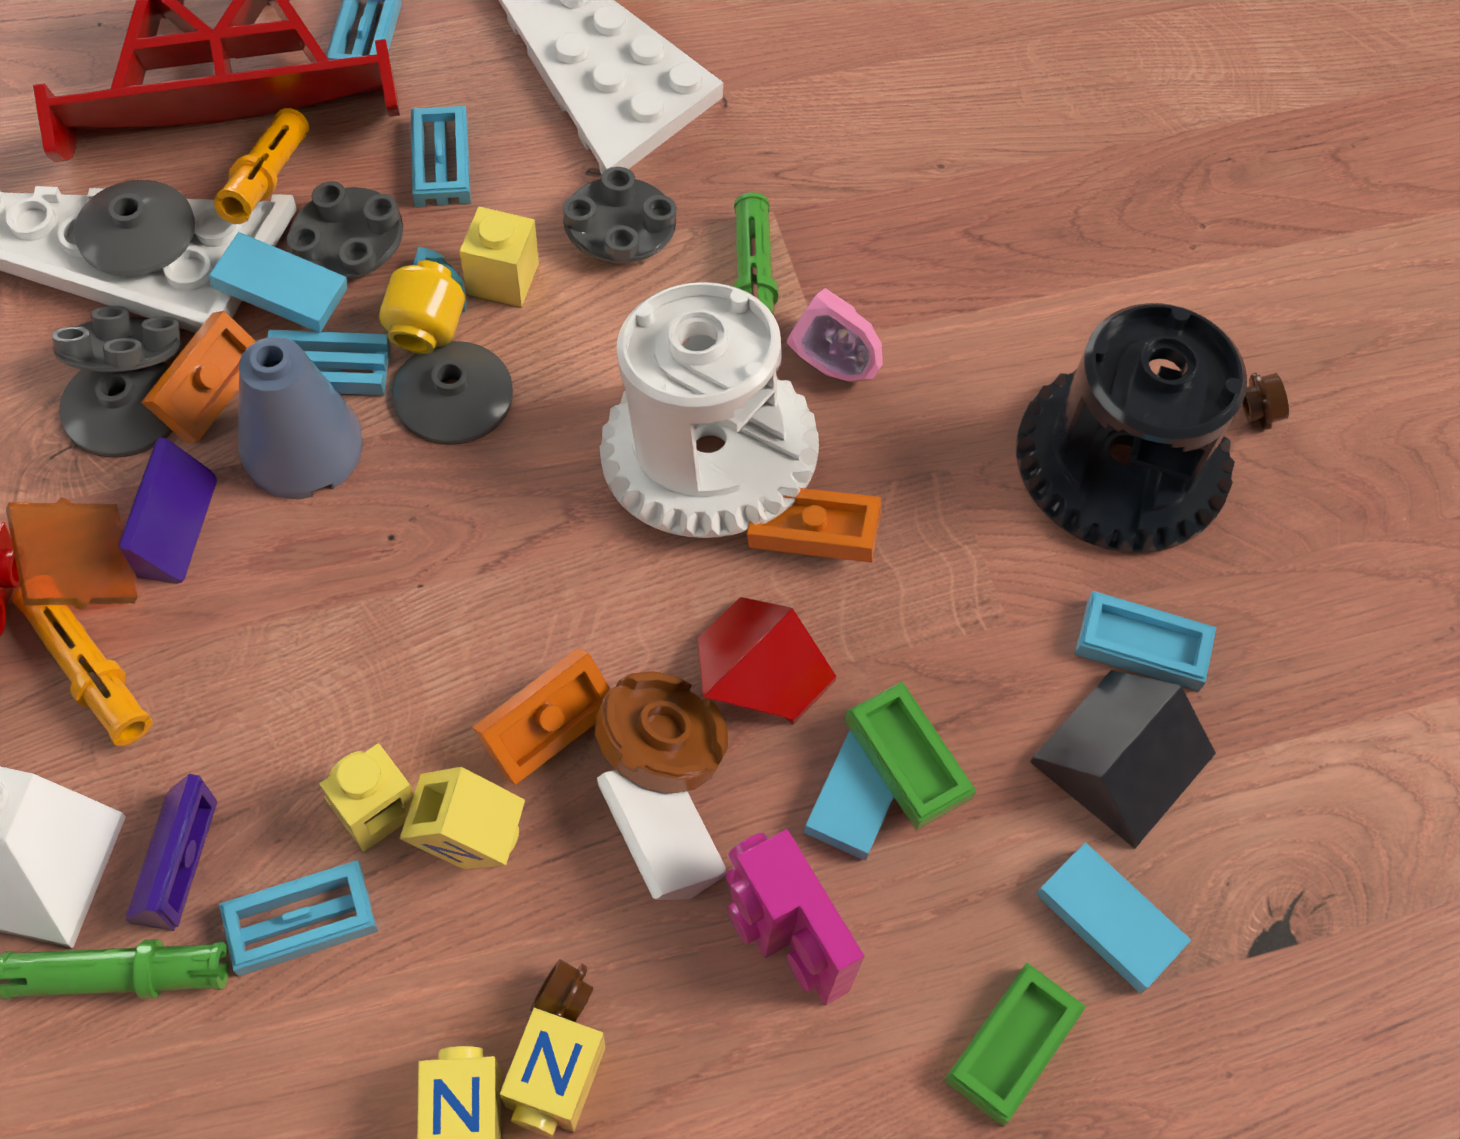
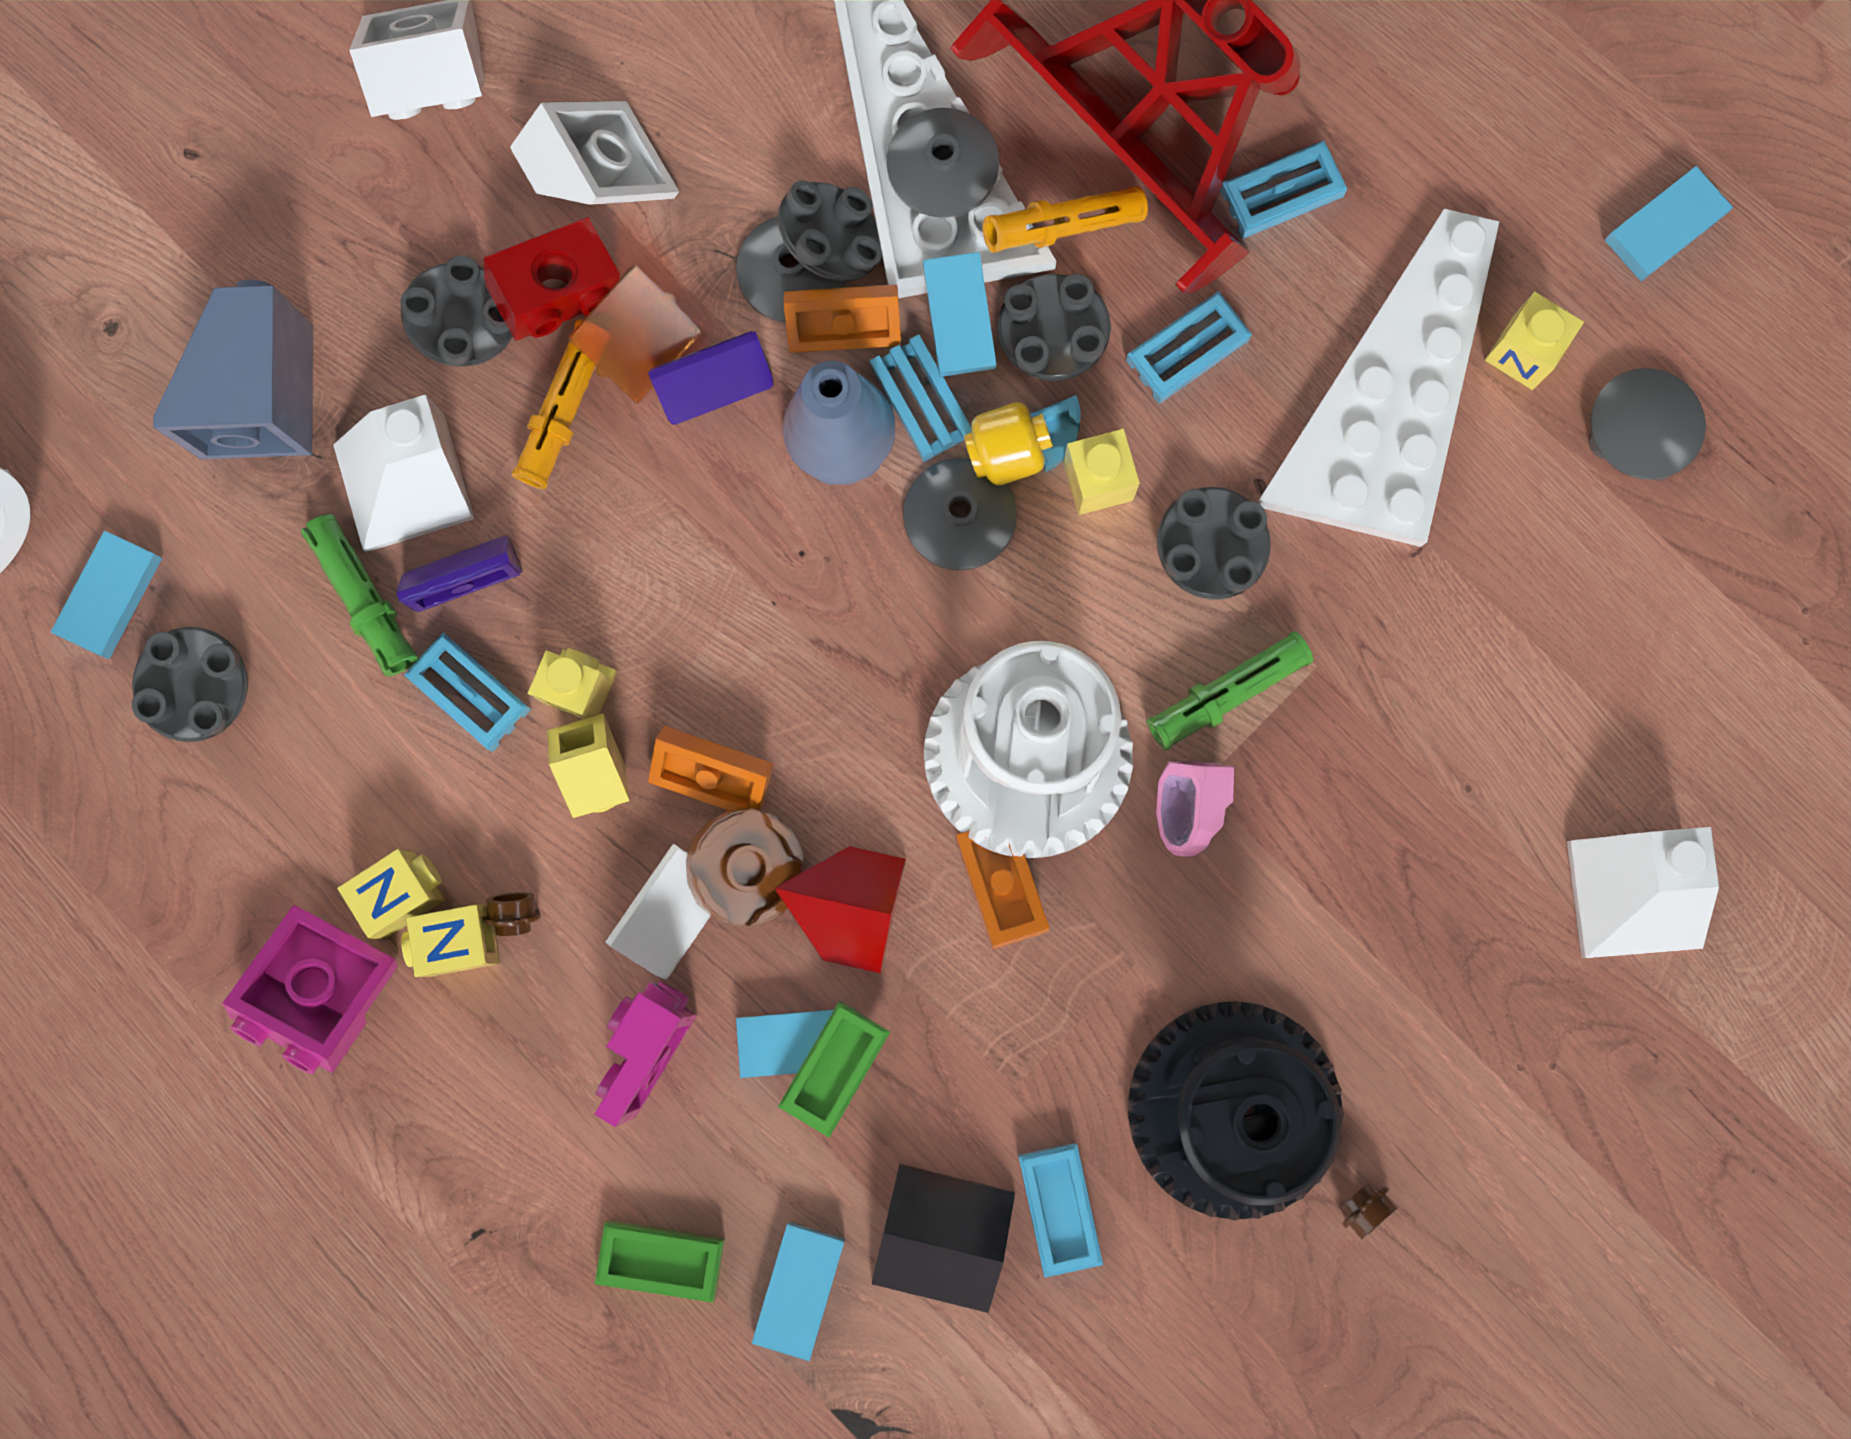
camera: 70 degrees right, 20 degrees up
(1093, 90) = (1643, 891): none -> white slope

